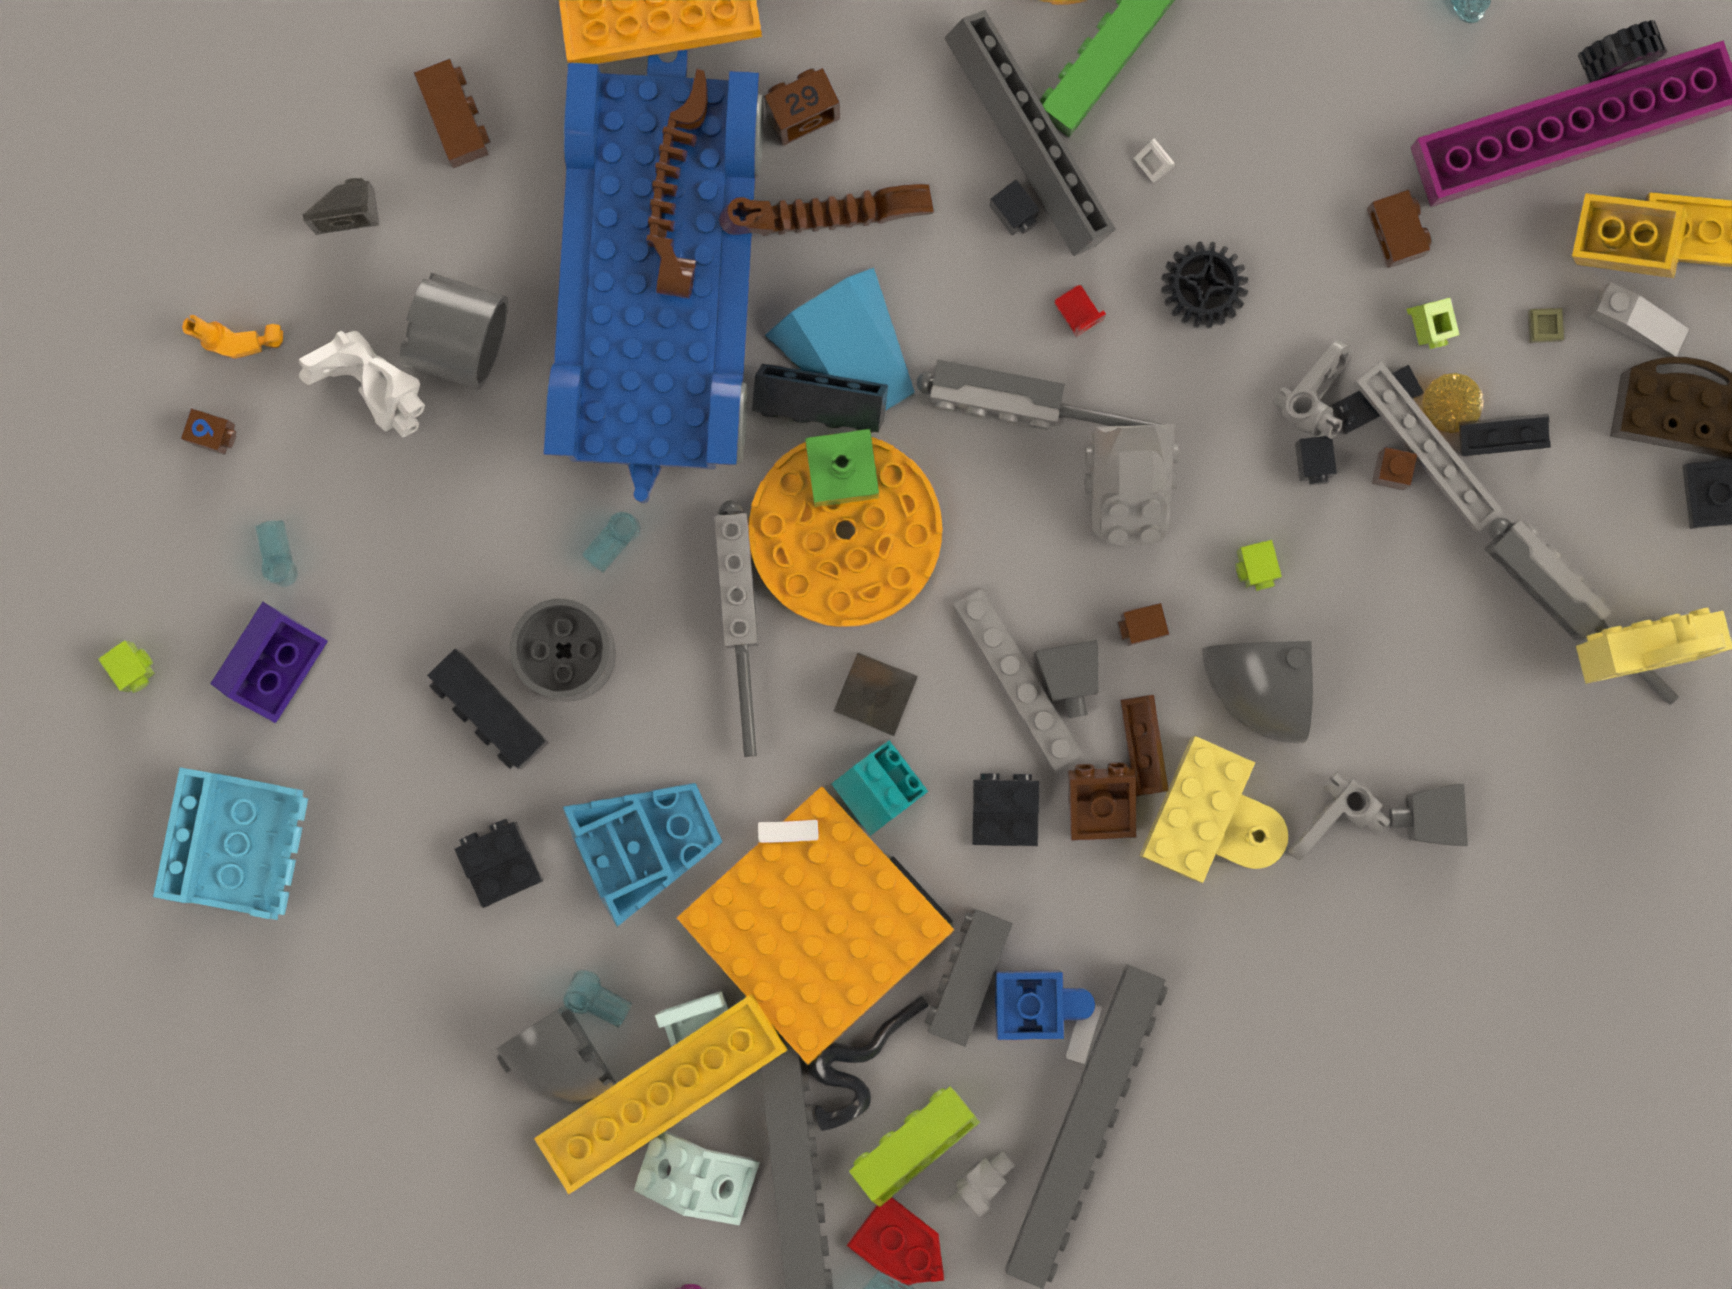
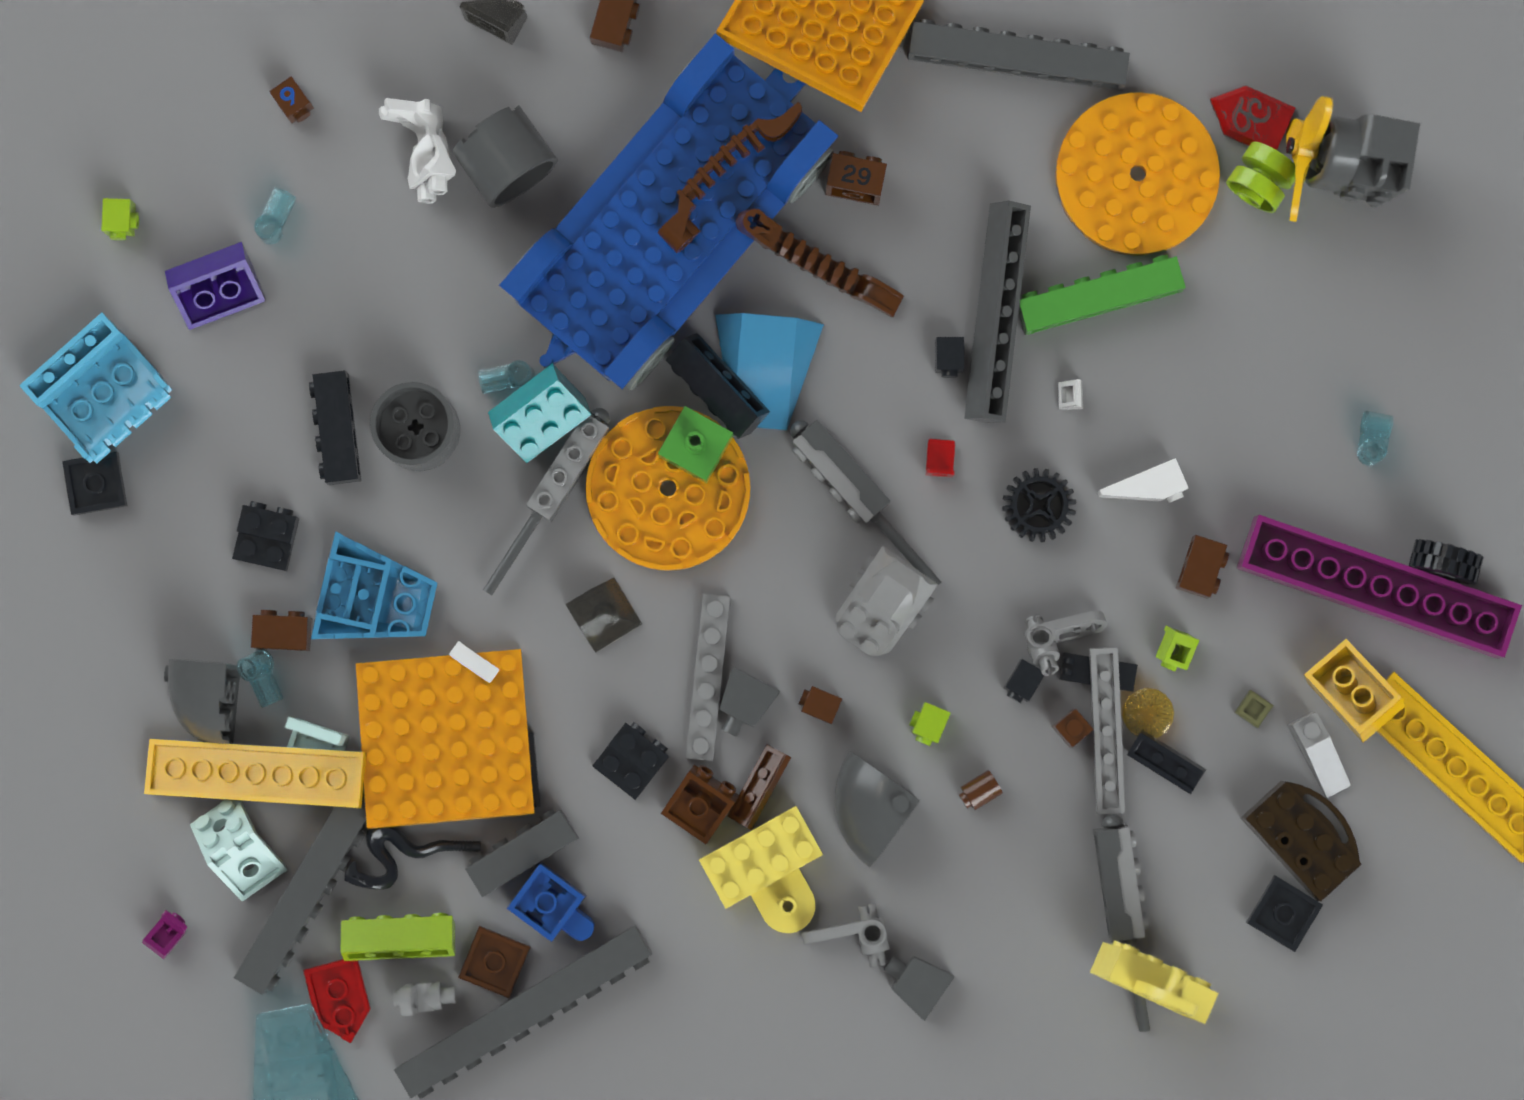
camera: 40 degrees right, 0 degrees up
(225, 342) = (348, 47): light orange arm -> none
(297, 937) = (94, 485): none -> black plate
(581, 942) = (281, 632): none -> reddish brown brick
(672, 549) = (539, 413): none -> brick
(879, 787) = (559, 679): teal slope -> none
(1021, 1099) = (494, 962): none -> reddish brown tile
(1082, 1037) = (568, 951): white sticker -> none
(1297, 185) = (1151, 485): none -> white slope
(1353, 592) = (980, 791): none -> reddish brown brick

